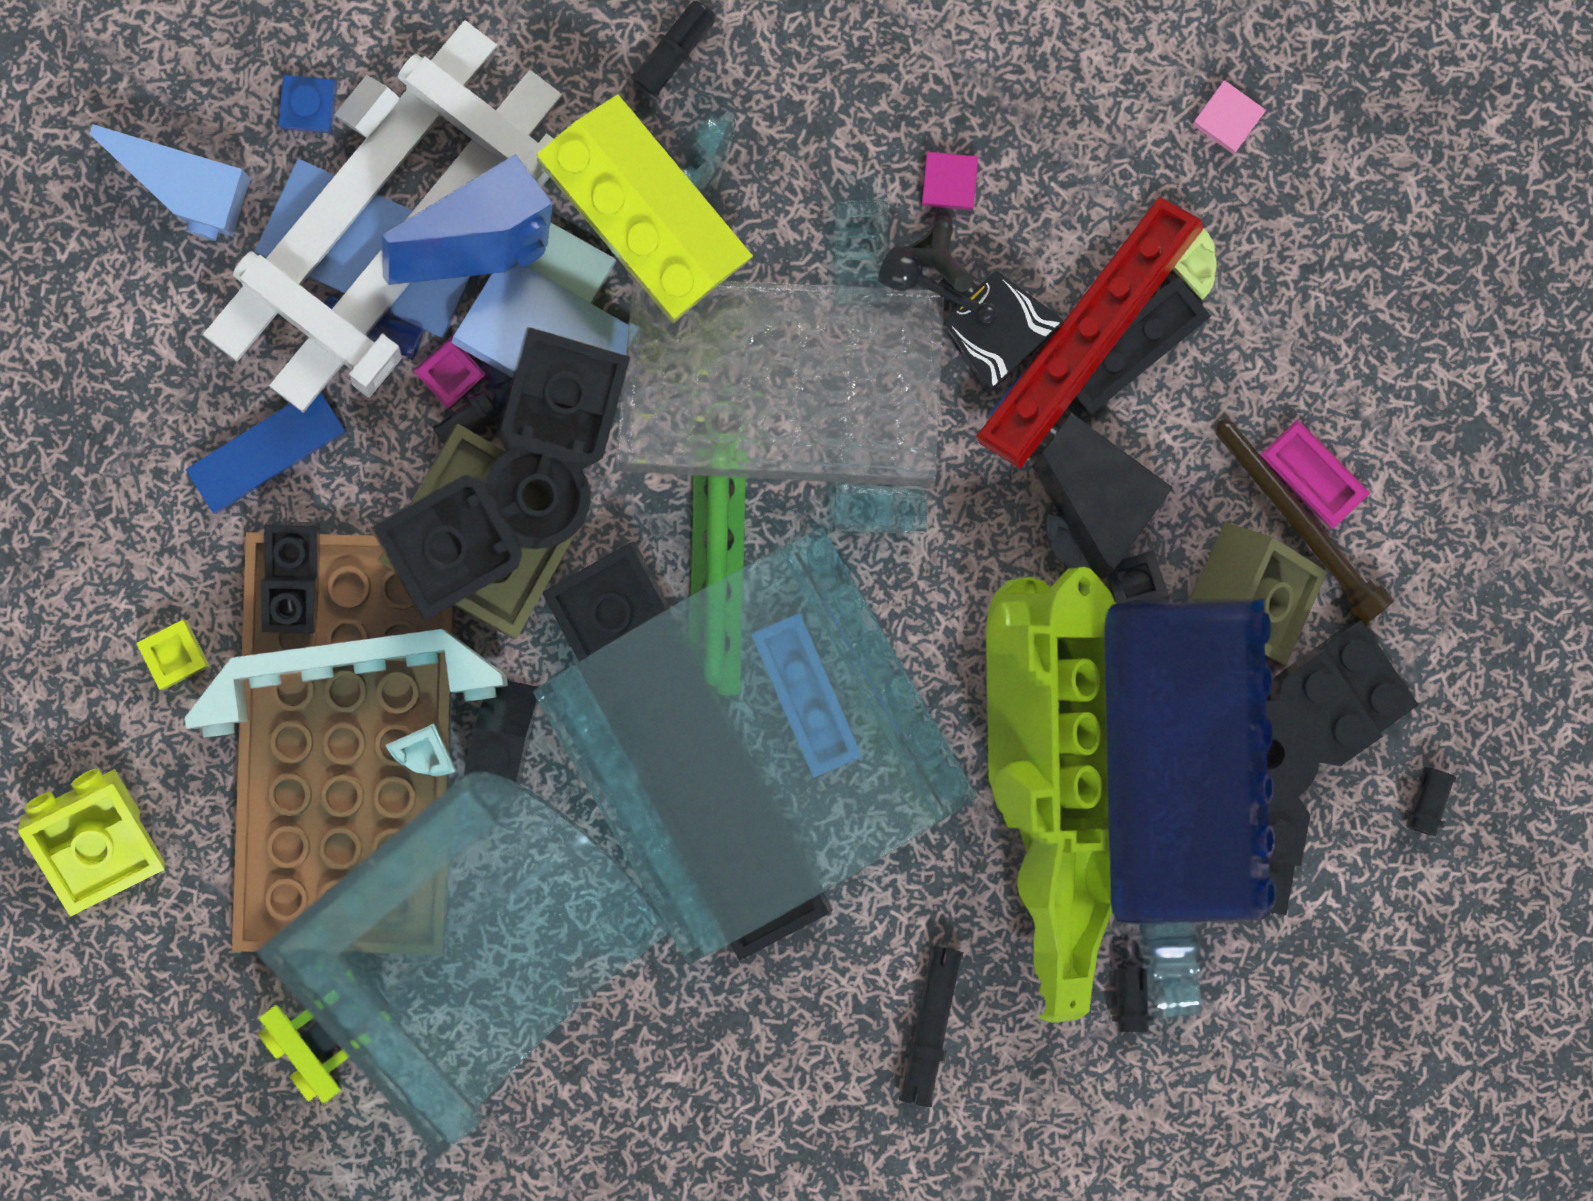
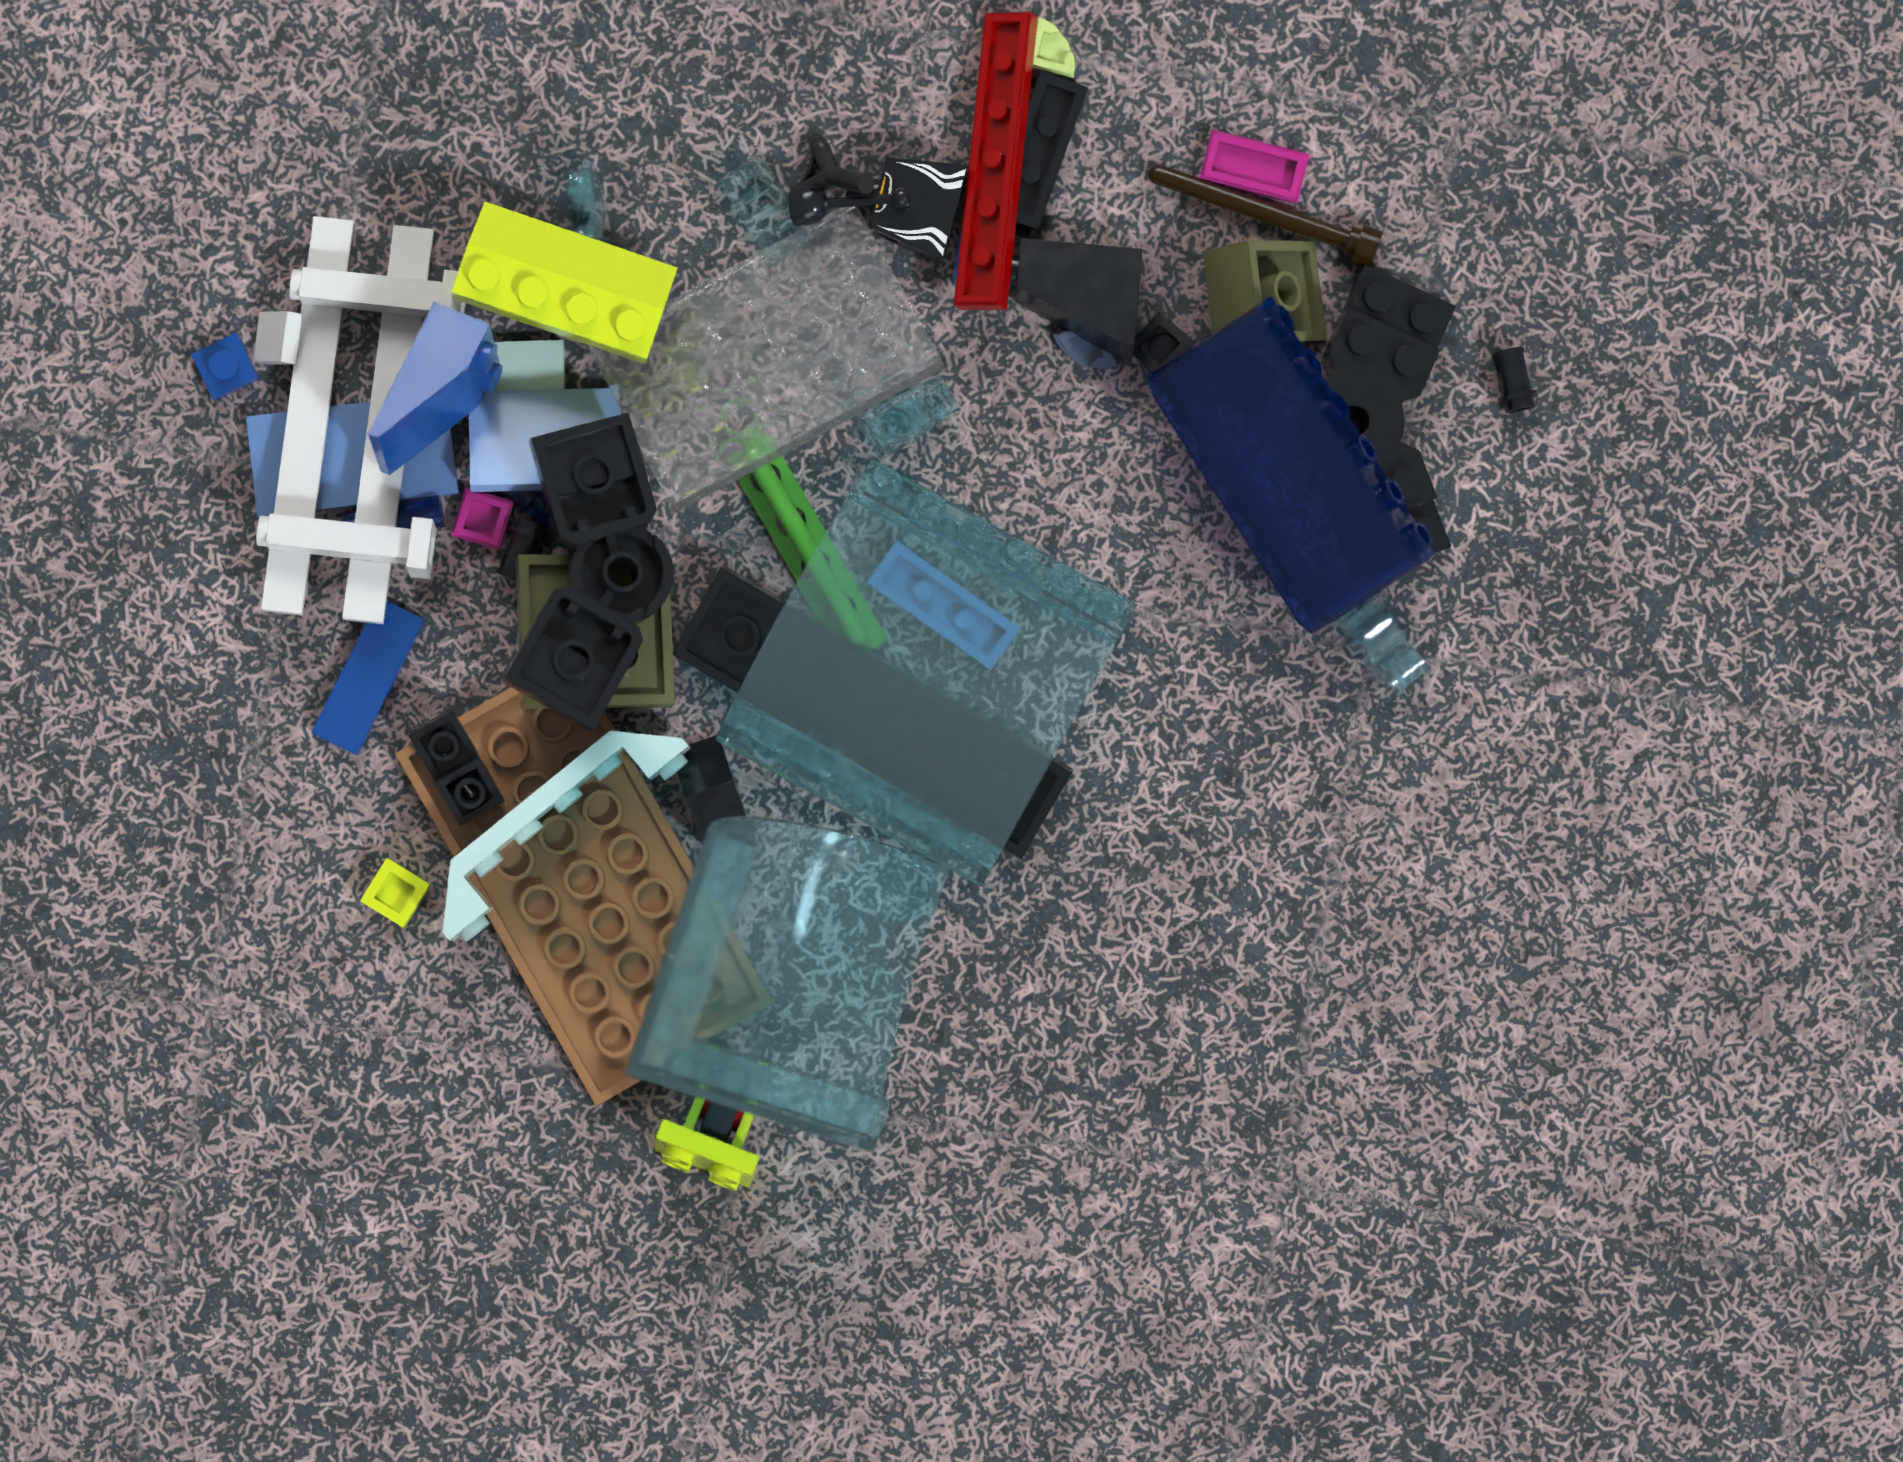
camera: 30 degrees left, 0 degrees up
(89, 840) = (421, 1087): neon yellow plate -> none
(190, 186) = (170, 494): light blue slope -> none
(423, 752) = (655, 845): light aqua tile -> none
(674, 48) = (504, 133): black axle -> none
(930, 1027) = (1213, 817): black pin -> none
(950, 181) = (802, 105): dark pink tile -> none
(1054, 769) = (1184, 541): lime animal -> none
(1132, 1000) = (1366, 694): black pin -> none

